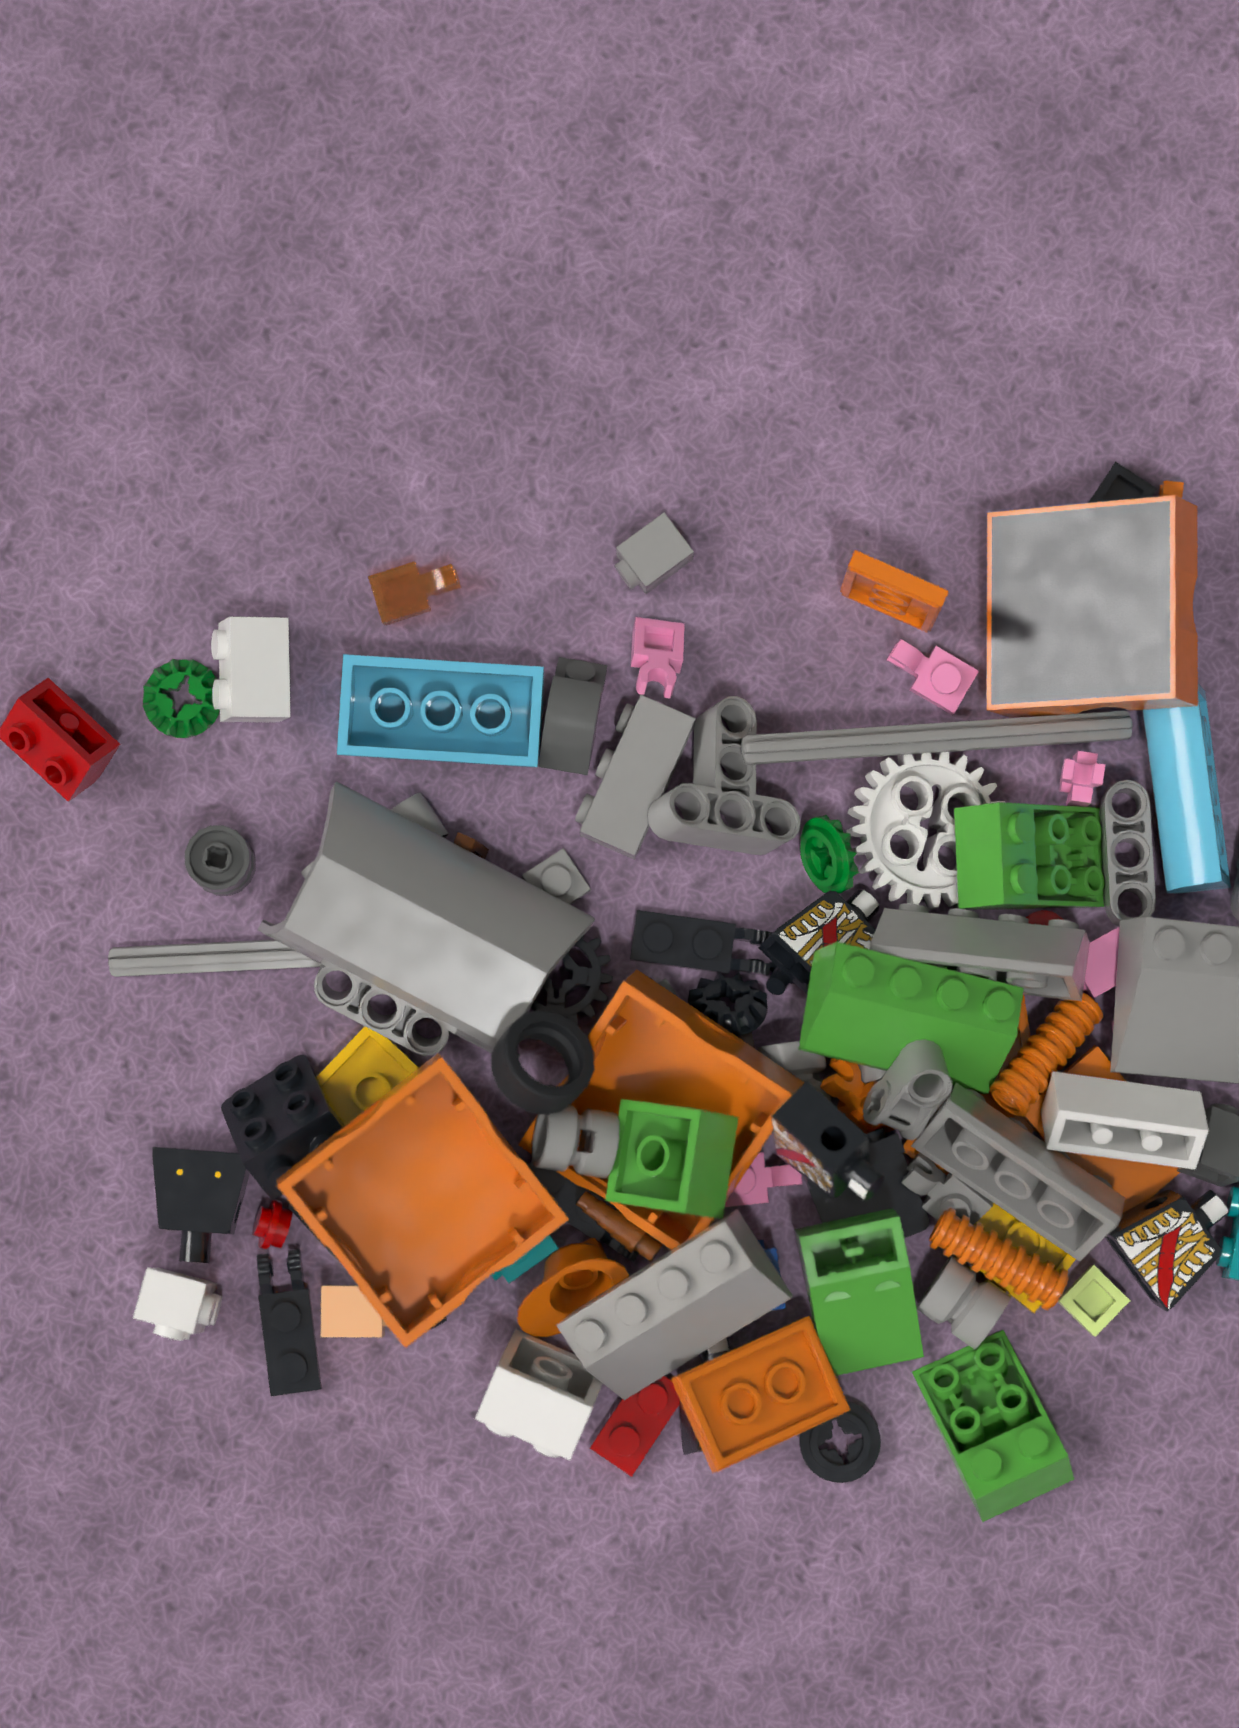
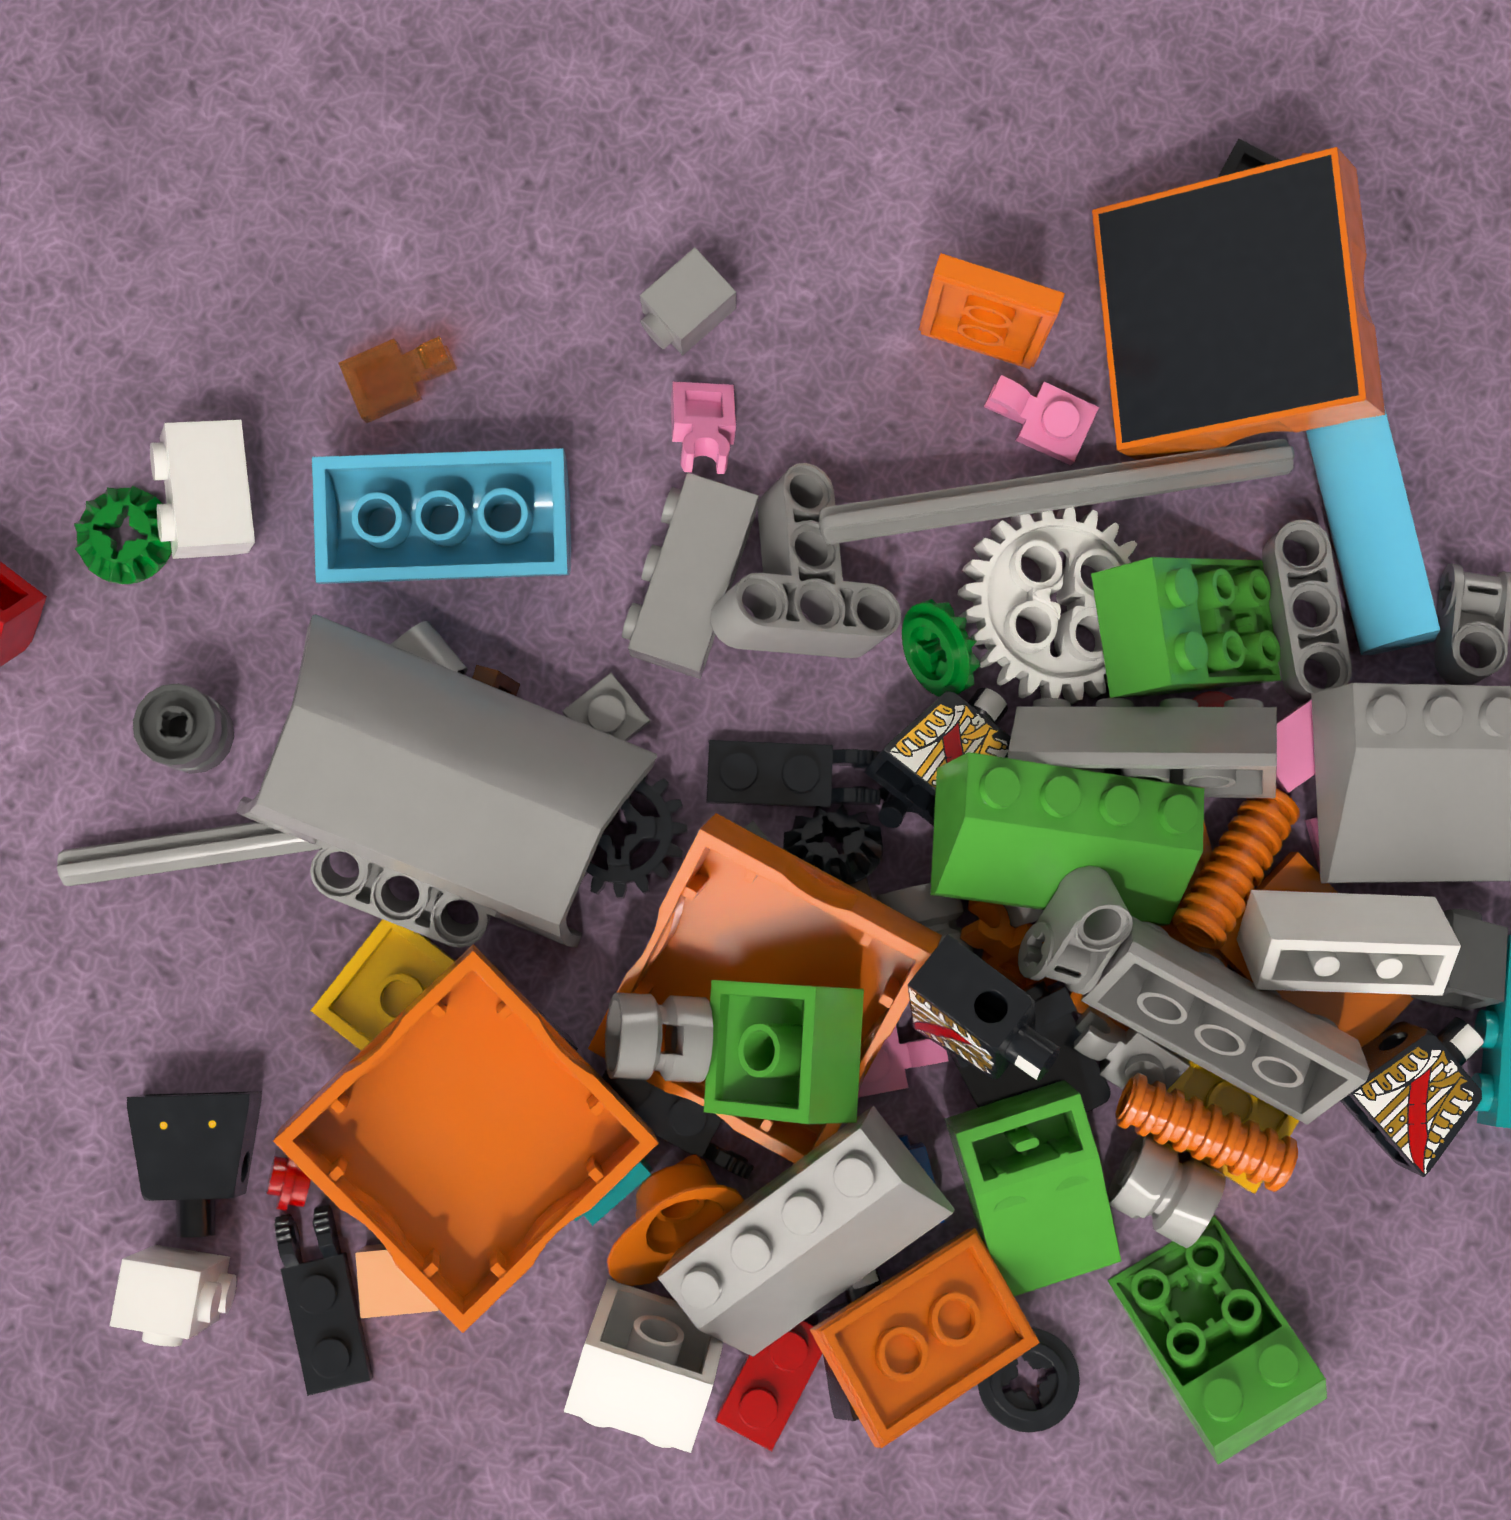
camera: 10 degrees left, 0 degrees up
(279, 1121) = (285, 1047): black bracket -> none
(567, 1041) = (636, 913): black tyre -> none
(572, 716) = (605, 509): dark grey brick -> none
(619, 1227) = (724, 1139): dark orange animal -> none
(1080, 777) = (1240, 522): bright pink plate -> none
(1093, 1300) = (1327, 1170): yellowish green plate -> none

